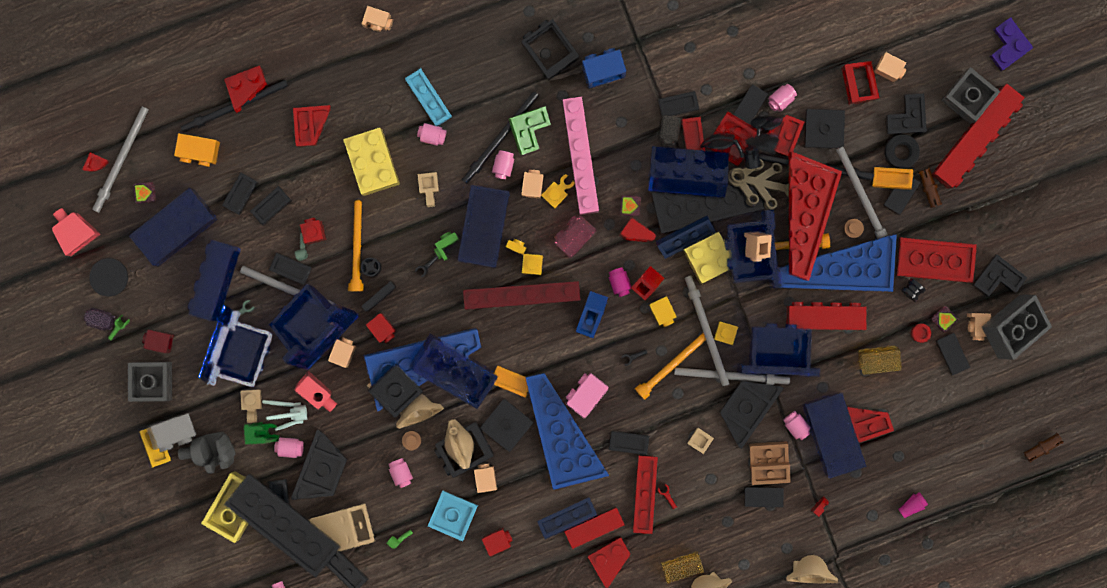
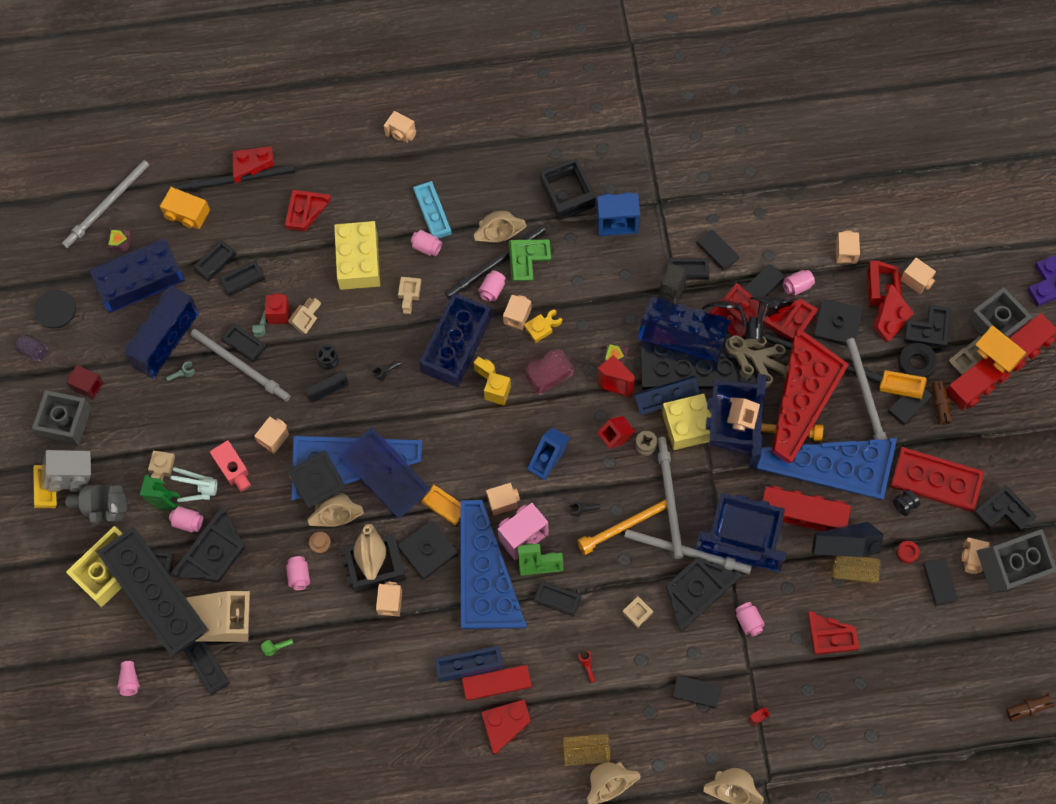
camera: 15 degrees right, 20 degrees down
(73, 232) = (34, 260): coral torso -> none
(94, 163) = (79, 202): red tile -> none
(118, 325) = (49, 355): bright green hand -> none
(235, 351) = (163, 407): clear blue windscreen -> none
(310, 326) = (247, 398): clear blue windscreen -> none
(339, 233) = (303, 316): none -> tan plate
(355, 283) = (306, 371): light orange piece -> none
(381, 328) = (320, 419): red brick -> none
(447, 240) = (410, 349): bright green bracket -> none
(452, 515) = (342, 632): medium azure plate -> none
(494, 102) = (499, 227): none -> tan hat
(497, 541) = (384, 671): red brick -> none
(521, 295) = (478, 417): dark red brick -> none
(561, 366) = (502, 499): none -> light nougat brick
(580, 156) = (574, 294): bright pink brick -> none
(601, 417) = (533, 562): none -> bright green plate
(620, 282) = (586, 427): dark pink brick -> none
(645, 494) = (562, 657): red plate -> none
(663, 312) = (626, 466): yellow brick -> none
(677, 286) = (643, 447): none -> dark tan wheel
(692, 133) = (697, 295): red tile -> none
(701, 79) = (717, 249): none -> black tile
(725, 333) = (690, 505): yellow plate -> none
(769, 463) = (710, 655): medium nougat slope -> none
(820, 51) = (847, 247): none -> light nougat brick
(834, 435) = (790, 638): clear blue brick -> none
(853, 228) = (851, 426): medium nougat plate -> none
(871, 340) = (852, 540): none -> black slope
(872, 112) = (891, 314): none -> red wing
(913, 505) = (867, 738): dark pink cone -> none
(944, 319) = (936, 542): tile -> none
(949, 135) = (966, 357): none -> dark tan slope
(976, 133) = (1000, 349): none -> light orange brick

